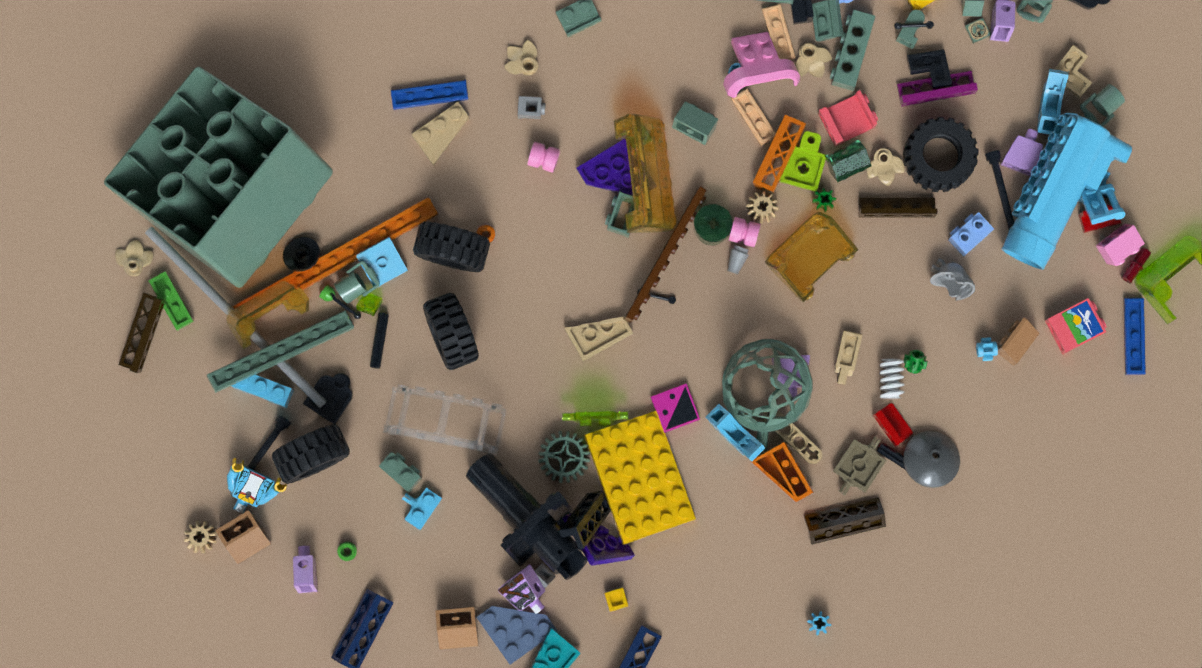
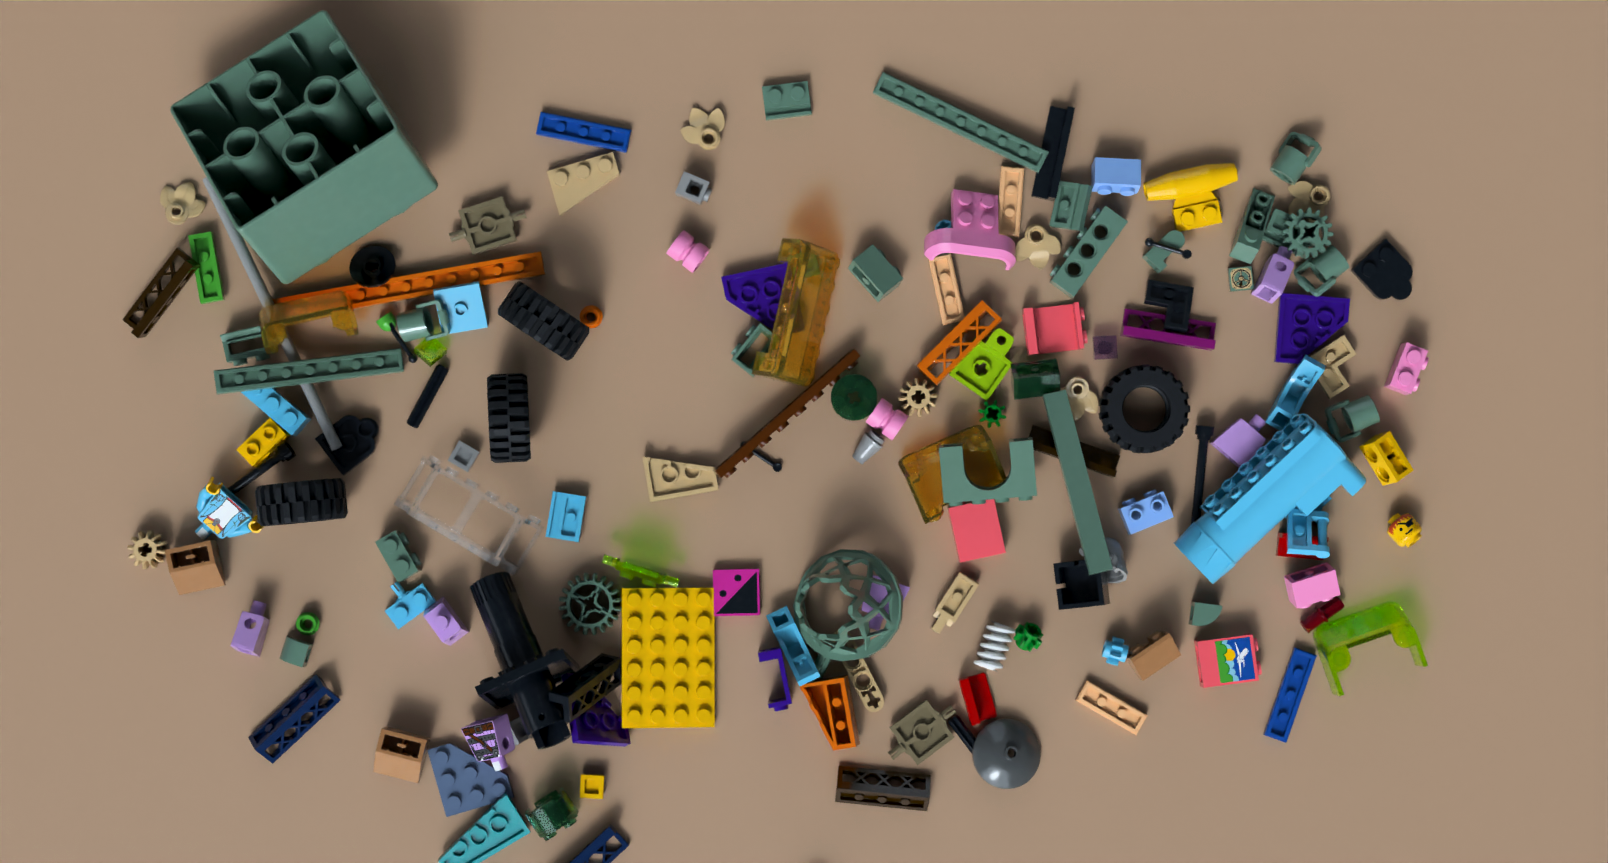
camera: 15 degrees right, 5 degrees up
(235, 353) = (238, 336): none -> sand green window
(263, 420) = (263, 442): none -> yellow brick
(345, 576) = (296, 651): none -> sand green brick
(380, 191) = (487, 225): none -> dark tan plate
(424, 376) = (463, 456): none -> light grey plate
(455, 510) = (445, 622): none -> lavender torso
(521, 395) = (566, 516): none -> medium azure plate
(593, 631) = (552, 813): none -> clear green brick
(725, 442) = (776, 653): none -> dark purple panel
(844, 292) = (976, 530): none -> coral brick
(865, 242) = (960, 488): none -> sand green arch
(892, 119) = (1105, 347): none -> clear purple plate
(910, 227) = (1077, 482): none -> sand green tile
(944, 305) = (1081, 588): none -> black piece
(999, 395) = (1111, 707): none -> light nougat tile
(1041, 47) = (1306, 323): none -> dark purple plate
(1044, 295) = (1203, 613): none -> sand green brick
(1130, 54) = (1406, 369): none -> bright pink brick
(1140, 127) = (1386, 458): none -> yellow brick
(1175, 177) = (1404, 530): none -> yellow head

